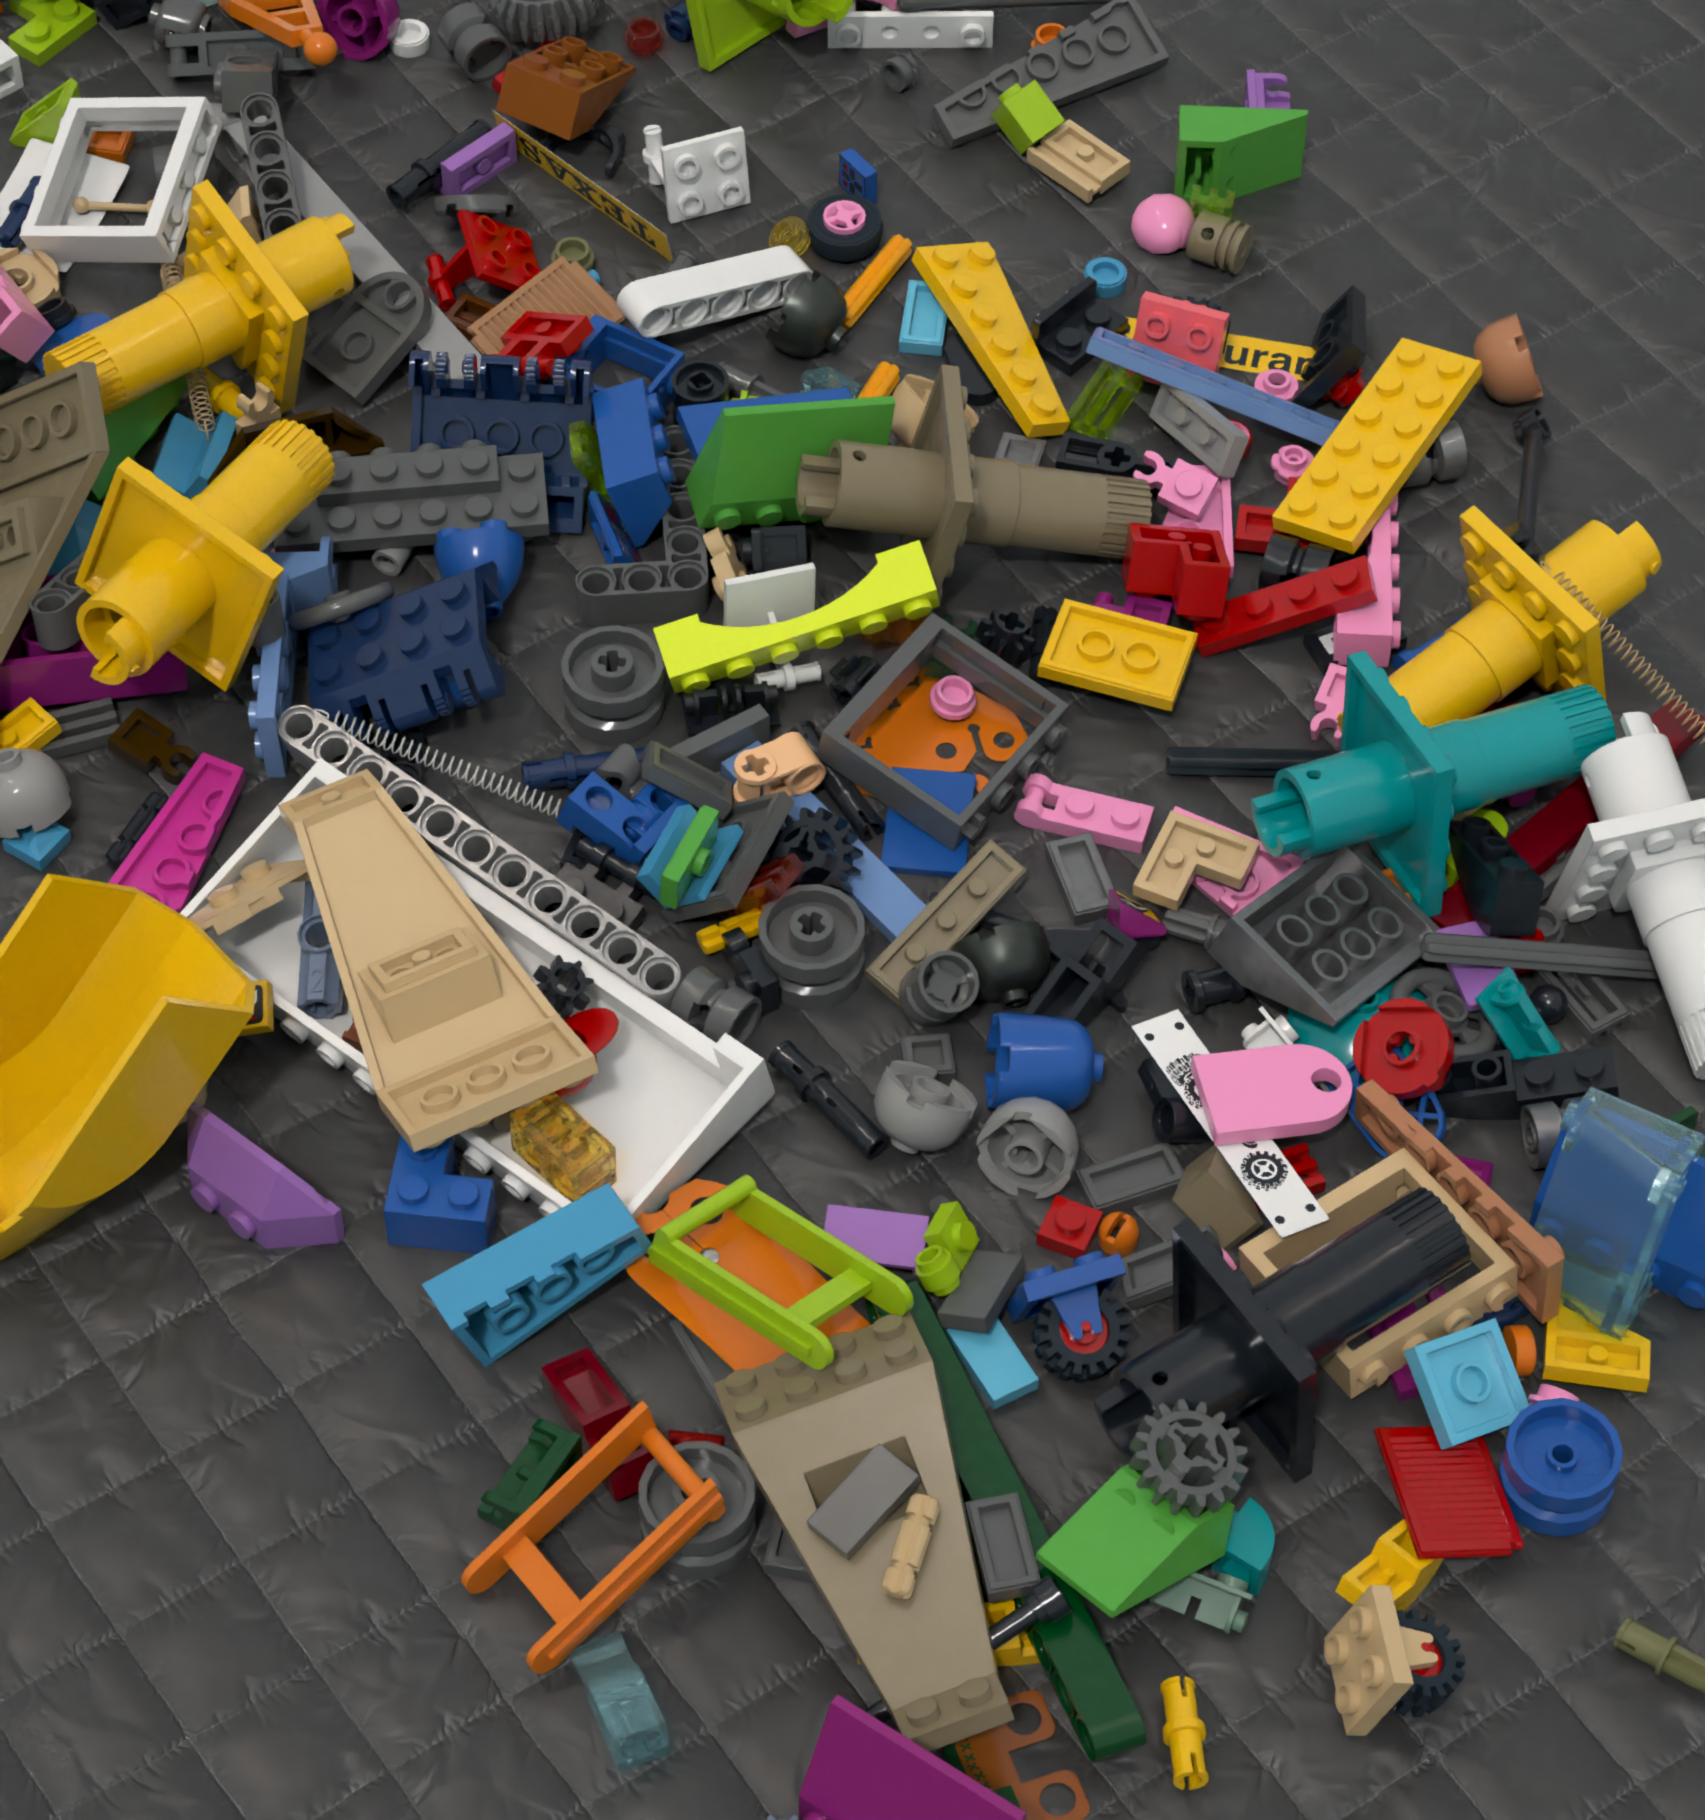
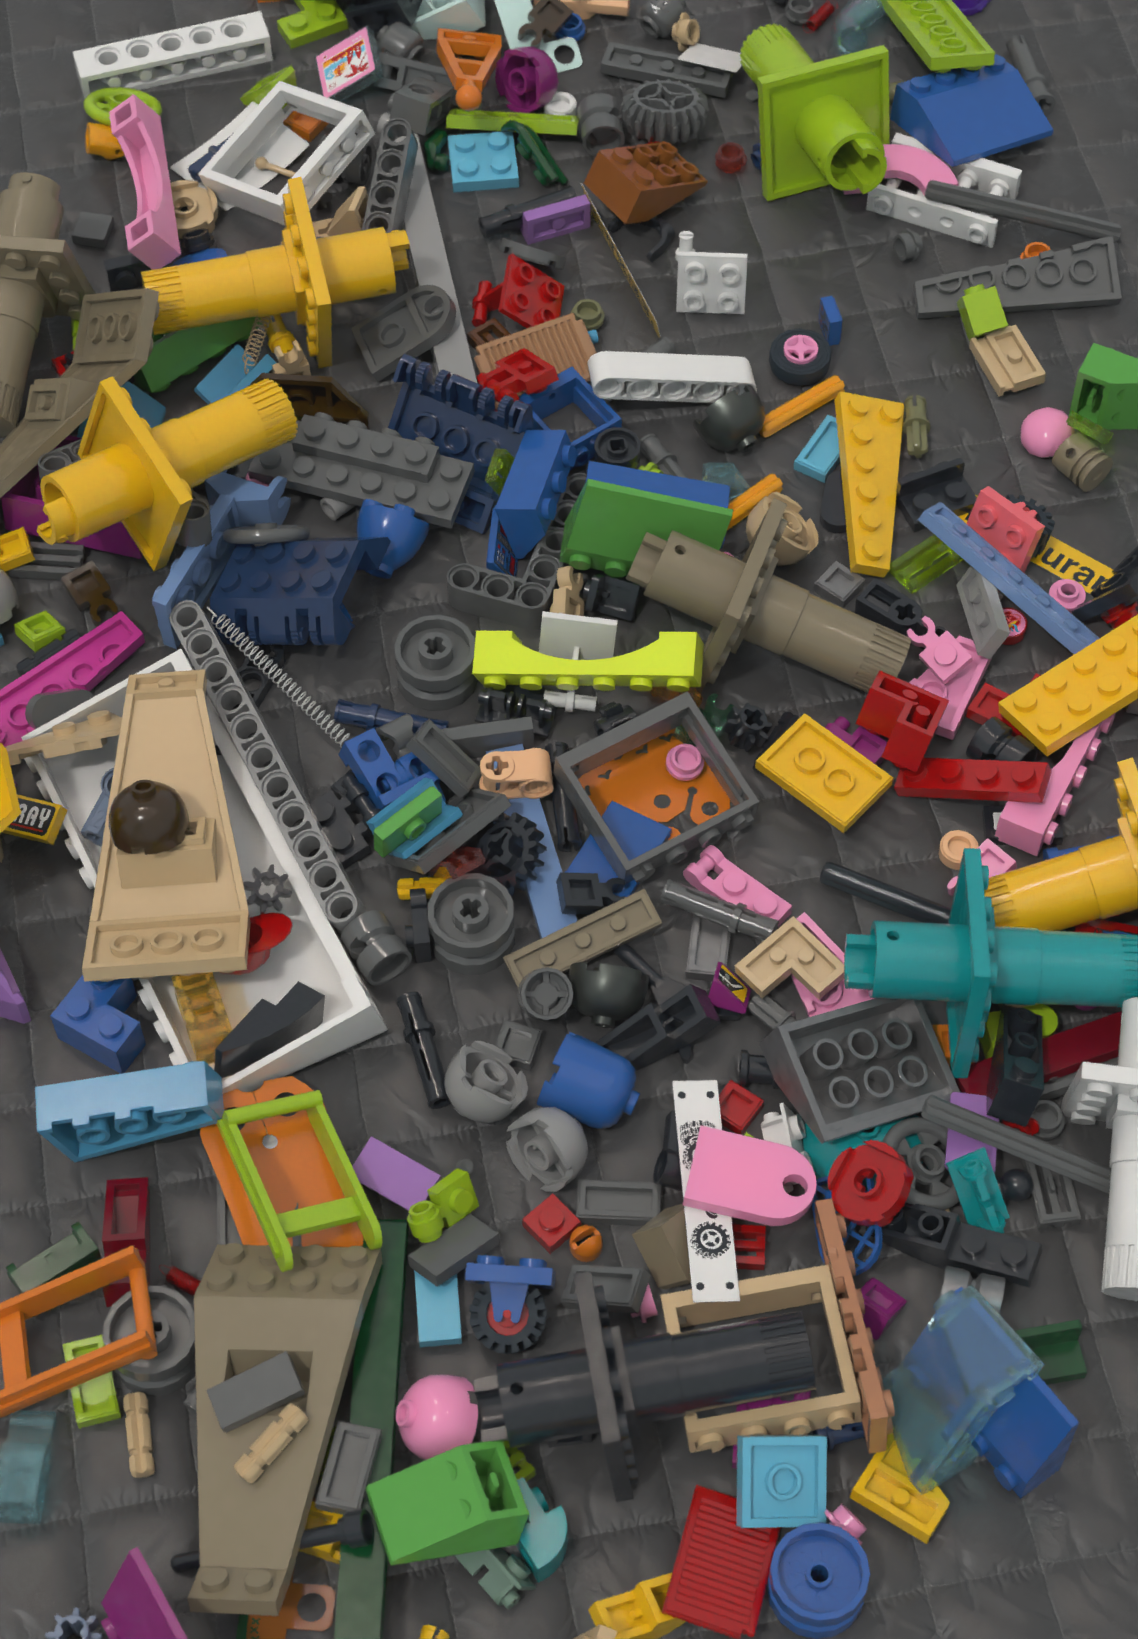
camera: 25 degrees right, 5 degrees up
(111, 808) = (39, 630): none -> lime tile
(132, 59) = (349, 65): none -> tile
(184, 880) = (50, 705): none -> dark grey tile
(298, 139) = (433, 146): none -> dark green arm
(350, 125) = (483, 161): none -> medium azure plate
(364, 69) = (496, 119): none -> lime tile
(399, 943) = (148, 818): none -> dark brown cylinder
(407, 90) = (531, 147): none -> dark green piece
(650, 1132) = (269, 1029): none -> black slope
(658, 1602) = (97, 1398): none -> lime tile
(730, 1618) = (139, 1435): none -> tan axle
(790, 232) = (756, 350): clear yellow plate -> none
(920, 871) = (584, 894): none -> black plate
(1016, 261) = (916, 426): none -> olive axle
(1068, 1458) = (437, 1415): none -> bright pink cylinder
(1081, 837) = (734, 917): none -> dark grey pin
(1109, 274) = (981, 461): dark azure tile -> none
(1162, 1450) = (488, 1472): dark grey gear -> none
(1211, 1028) = (738, 1107): none -> red tile
(1290, 462) = (1049, 653): bright pink plate -> none
(1298, 689) = (953, 845): none -> light nougat tile
(1521, 1348) = (841, 1467): orange tile -> none

